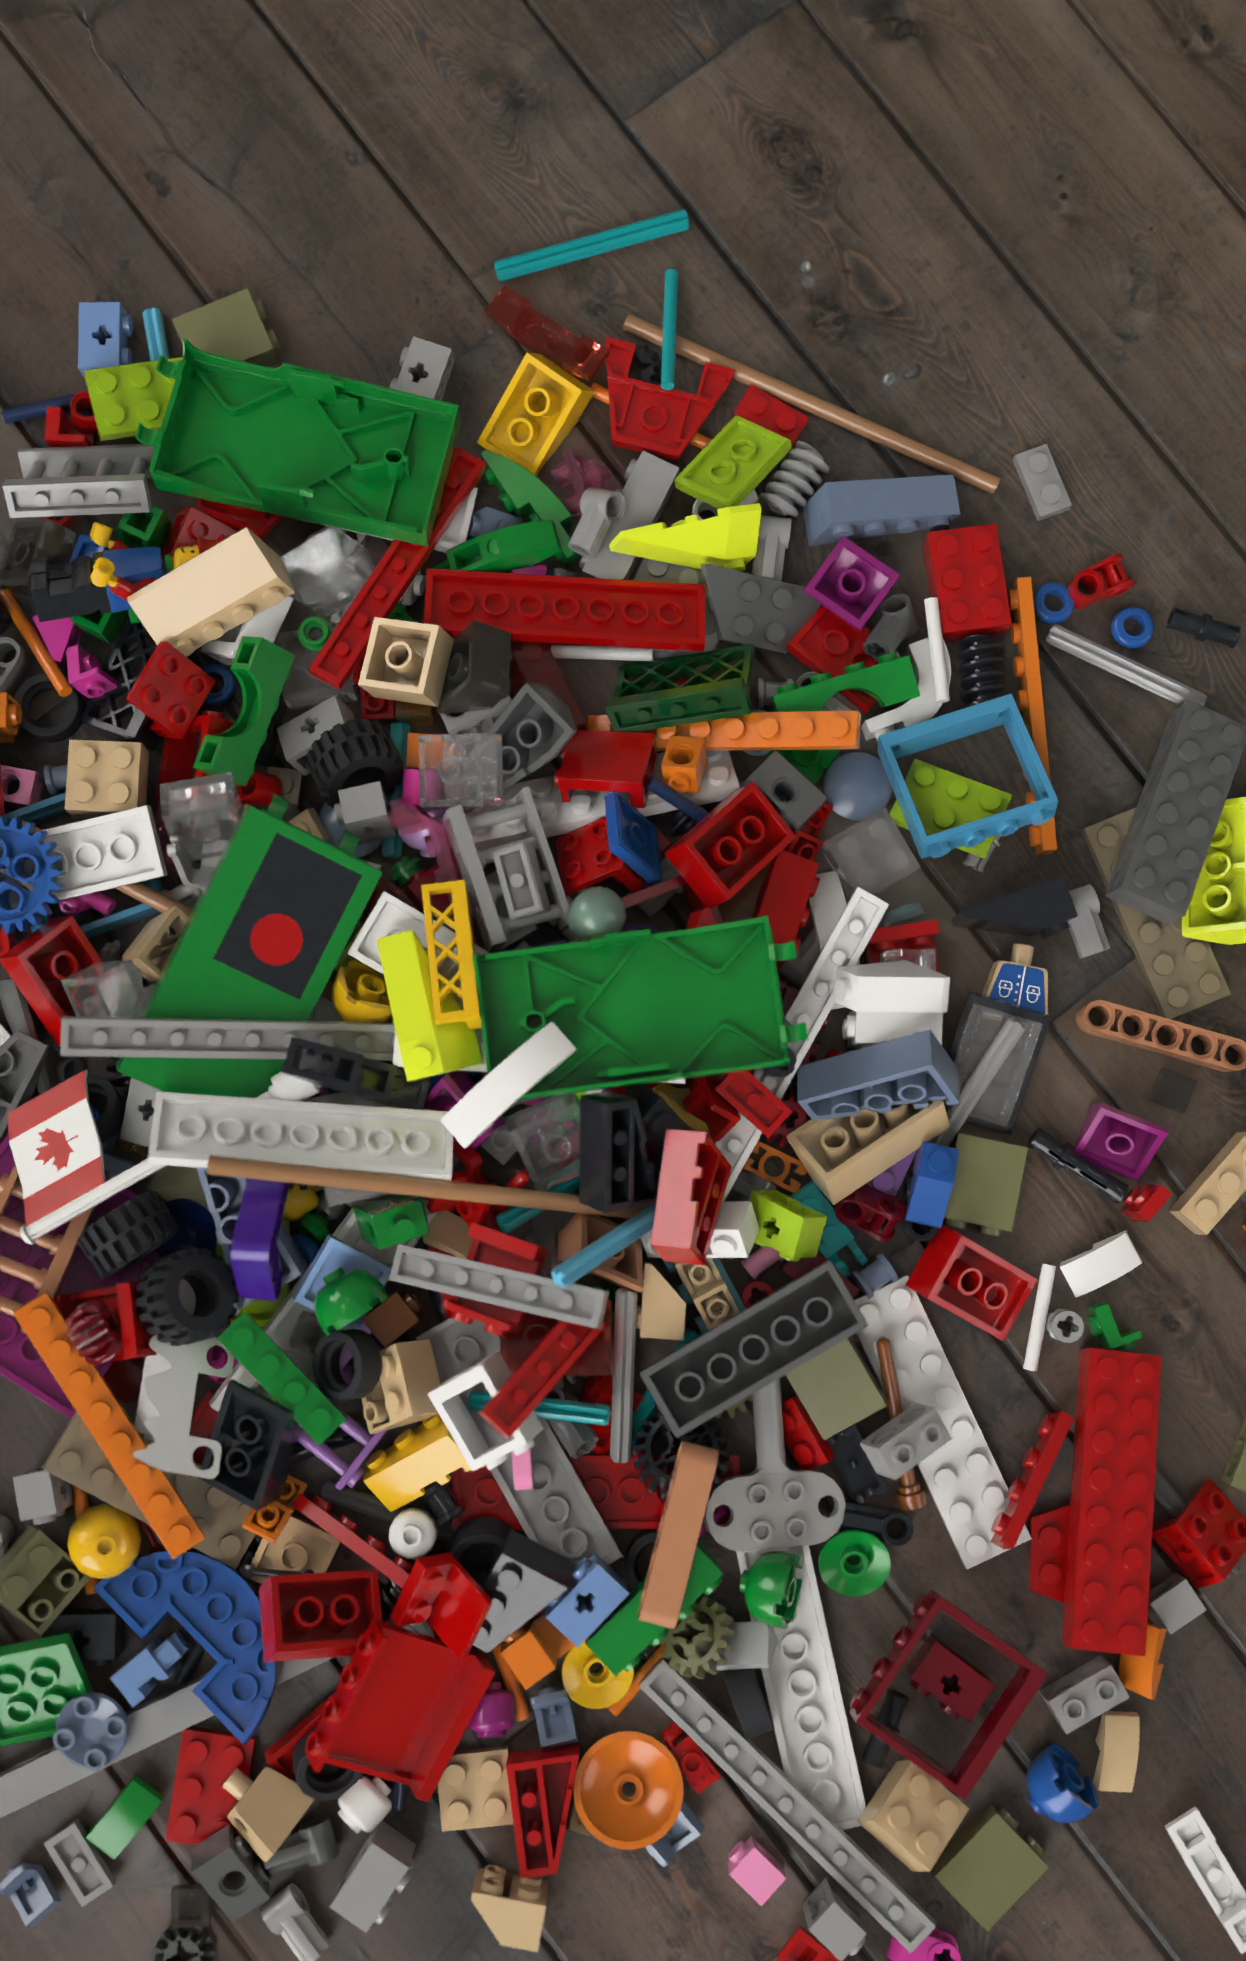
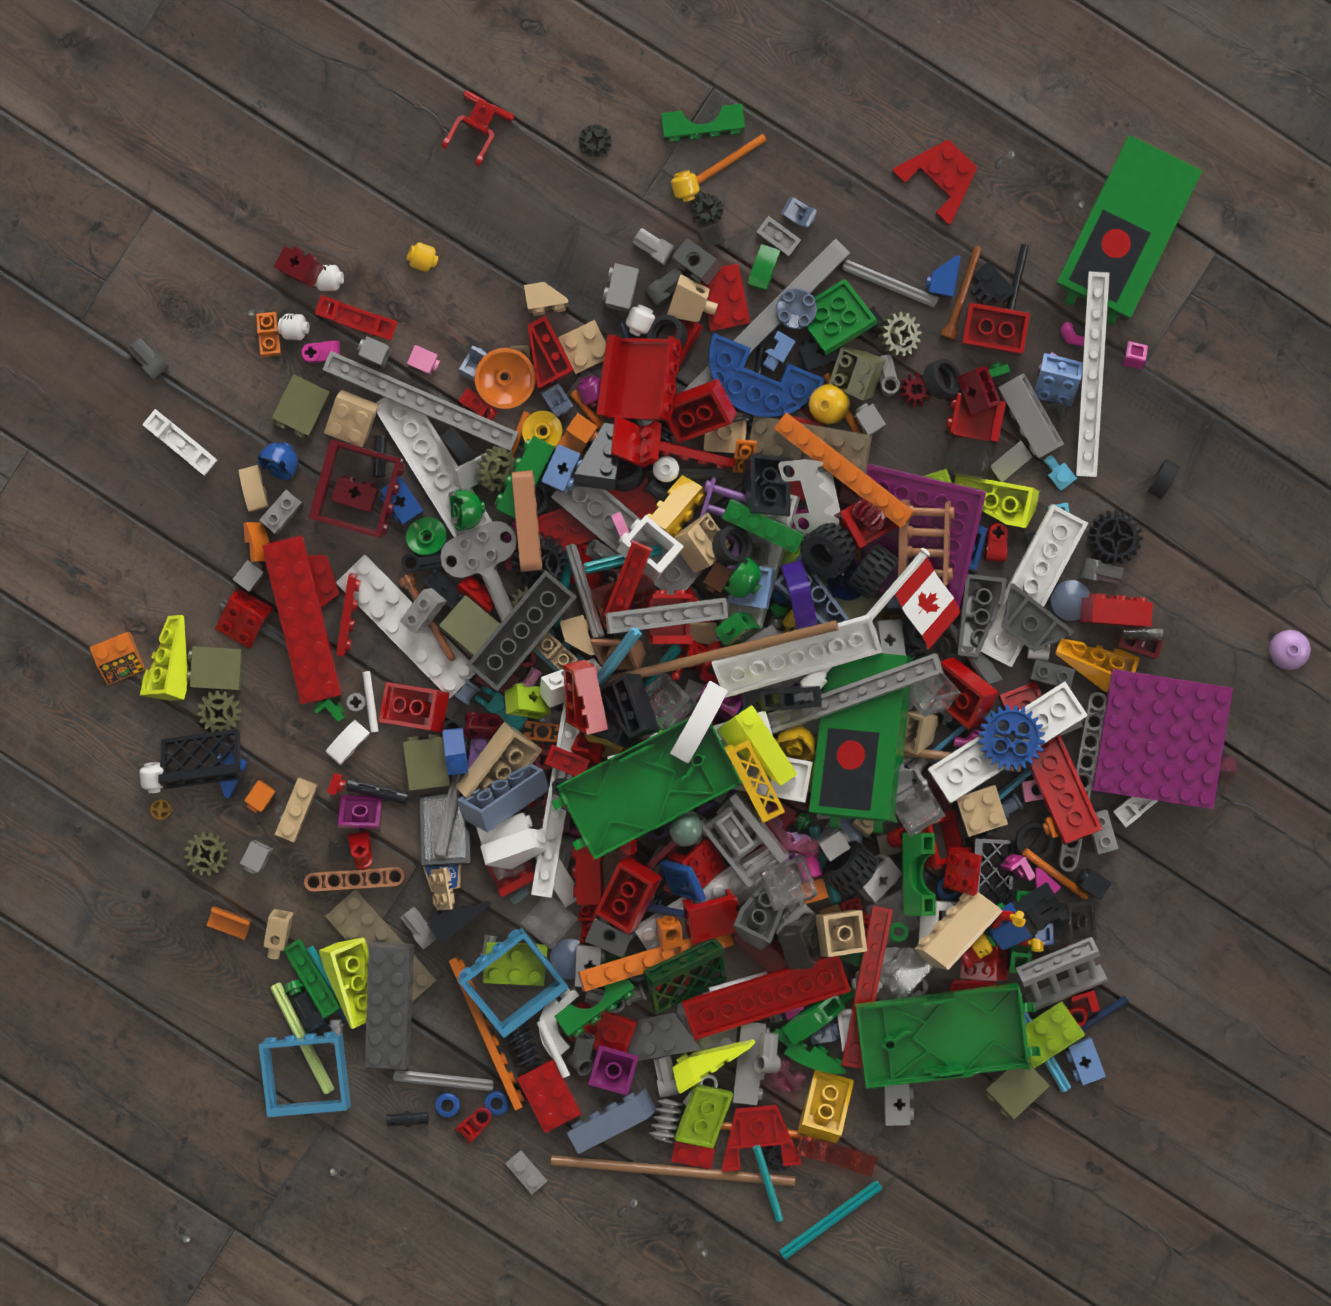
camera: 165 degrees right, 5 degrees up
(835, 779) = (583, 955): none -> light grey brick
(863, 1619) = (412, 507): none -> blue brick
(1038, 951) = (442, 897): none -> tan hinge
(1138, 1080) = (361, 849): none -> red piece

